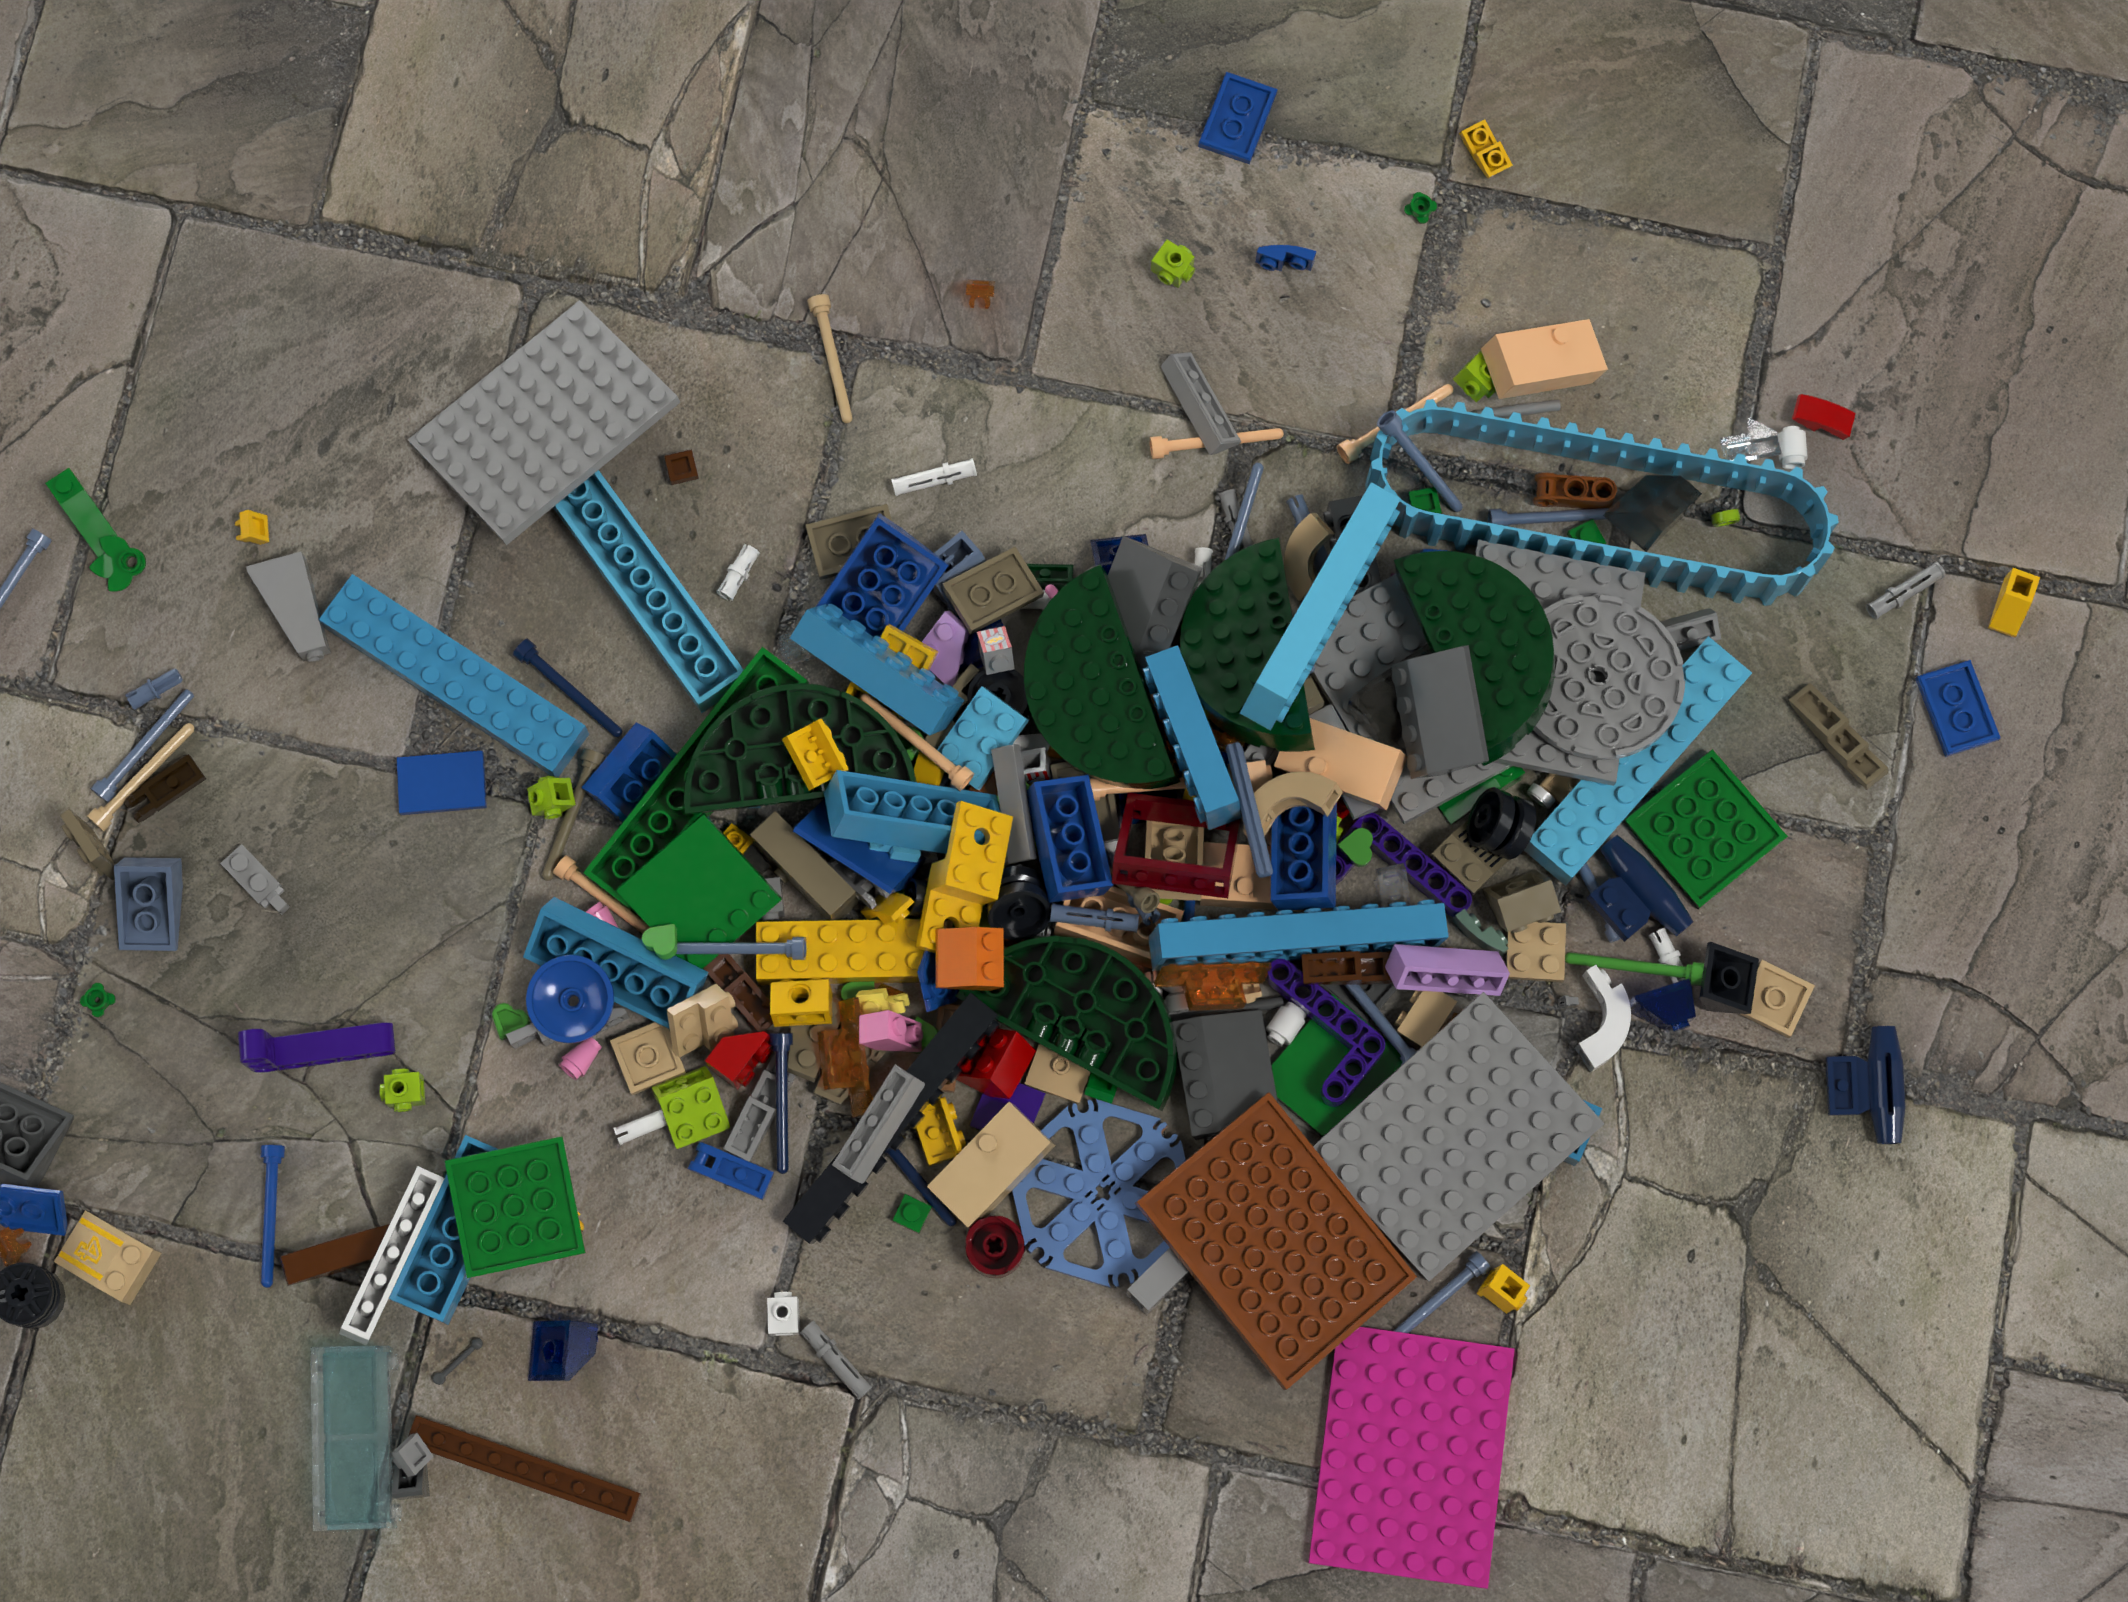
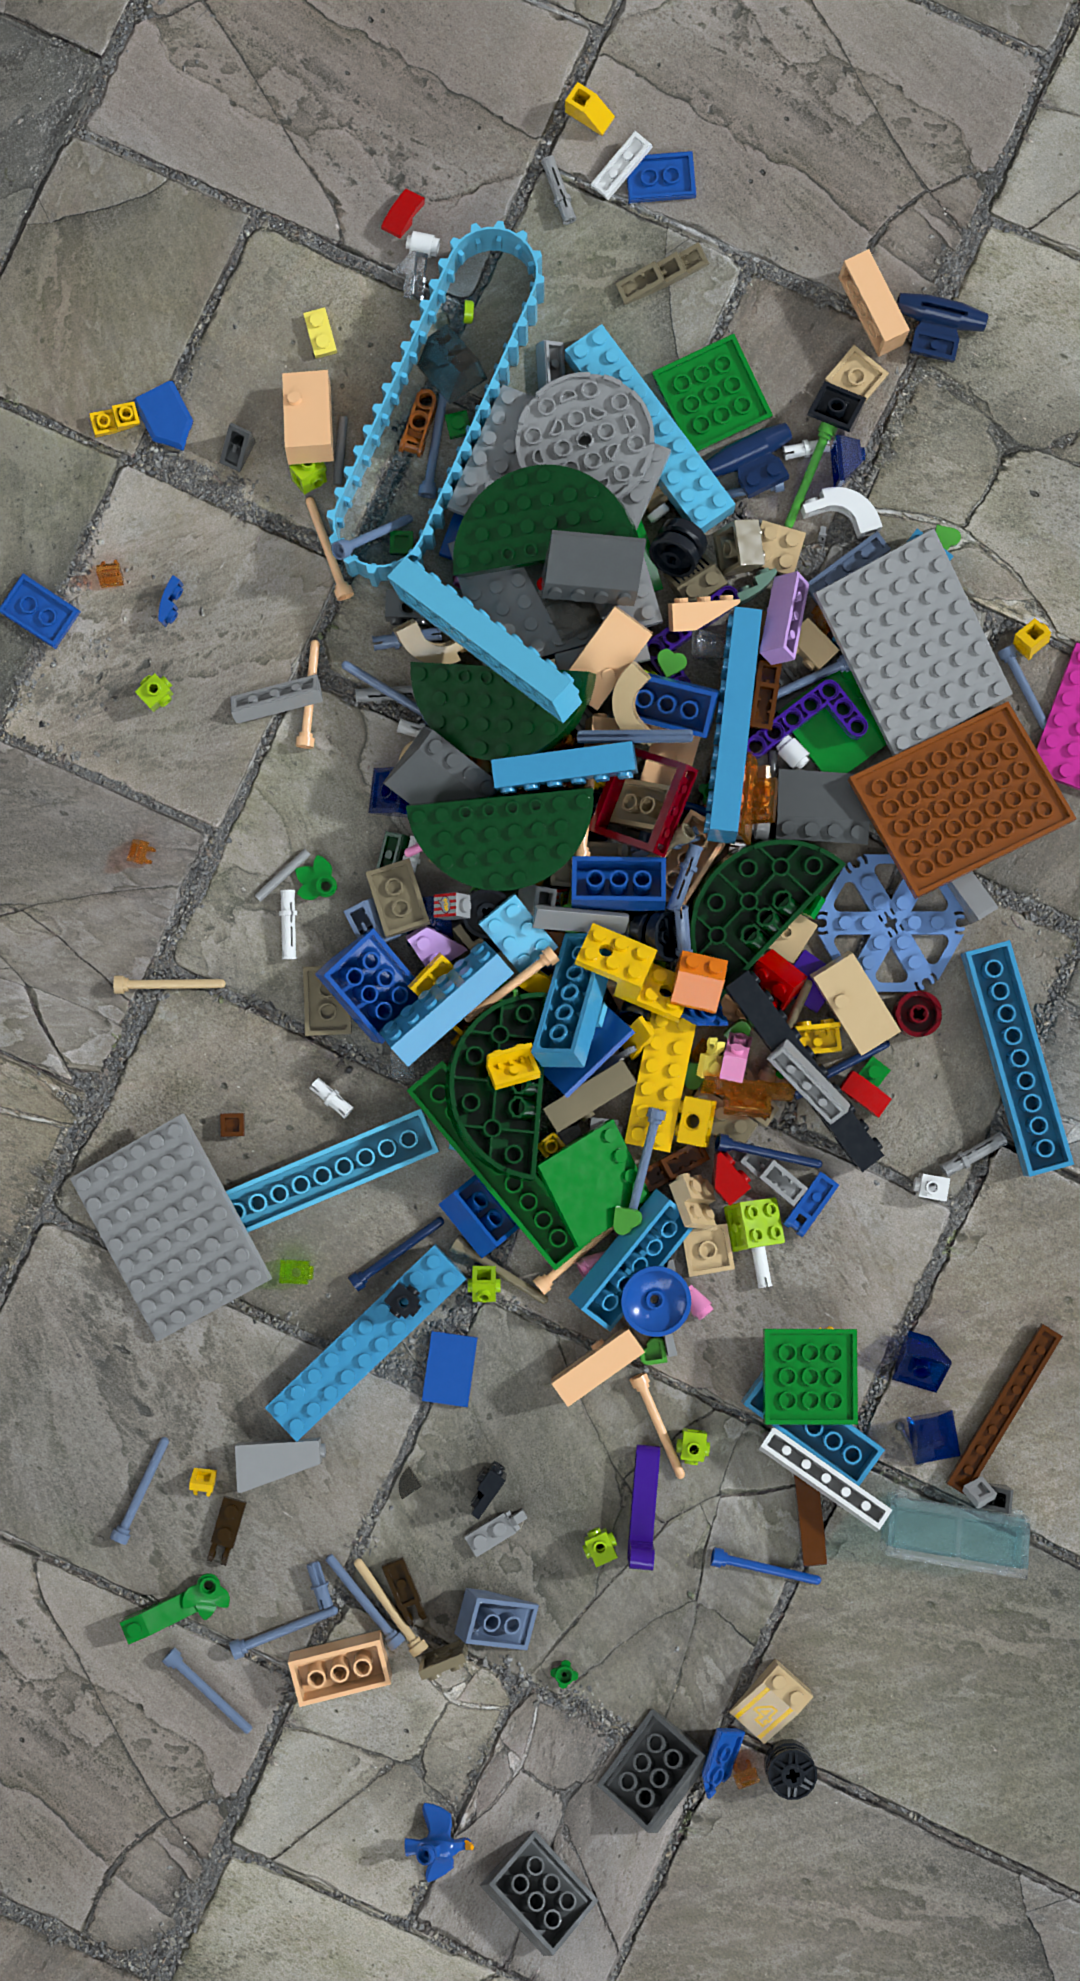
camera: 75 degrees left, 10 degrees up
(59, 732) = (340, 1668): none -> light nougat brick
(63, 613) = (241, 1647): none -> sand blue piece
(174, 450) = (121, 1533): none -> sand blue piece
(202, 568) = (227, 1527): none -> dark brown hinge
(251, 1009) = (600, 1554): none -> lime brick
(295, 765) = (408, 1483): none -> clear smoke tile
(308, 853) = (489, 1483): none -> black plate
(466, 1013) = (641, 1383): none -> light nougat piece
(472, 1388) = (933, 1436): none -> clear blue slope
(478, 950) = (597, 1365): none -> light nougat brick
(510, 699) = (396, 1306): none -> black brick
(518, 566) = (287, 1267): none -> clear neon green brick
(878, 1077) = (768, 1072): none -> dark tan piece
(882, 1206) = (865, 1093): none -> red slope
(967, 1385) = (1017, 1059): none -> dark azure brick
(992, 458) = (282, 875): none -> light grey bar
(995, 494) = (314, 877): none -> green plate
(1031, 928) = (682, 929): none -> sand blue pin
(1300, 184) = (110, 574): none -> clear orange tile
(1422, 858) = (694, 615): none -> light nougat slope
(1423, 200) = (147, 479): green plate -> none
(1488, 291) = (236, 447): none -> dark grey slope
(1506, 204) = (165, 415): none -> blue tile
(1555, 1052) = (859, 556): none -> sand blue plate
(1603, 1154) = (948, 536): none -> bright green tile
(1653, 356) = (320, 333): none -> light yellow plate
(1871, 995) = (873, 303): none -> light nougat brick
(1957, 656) = (621, 165): none -> white tile

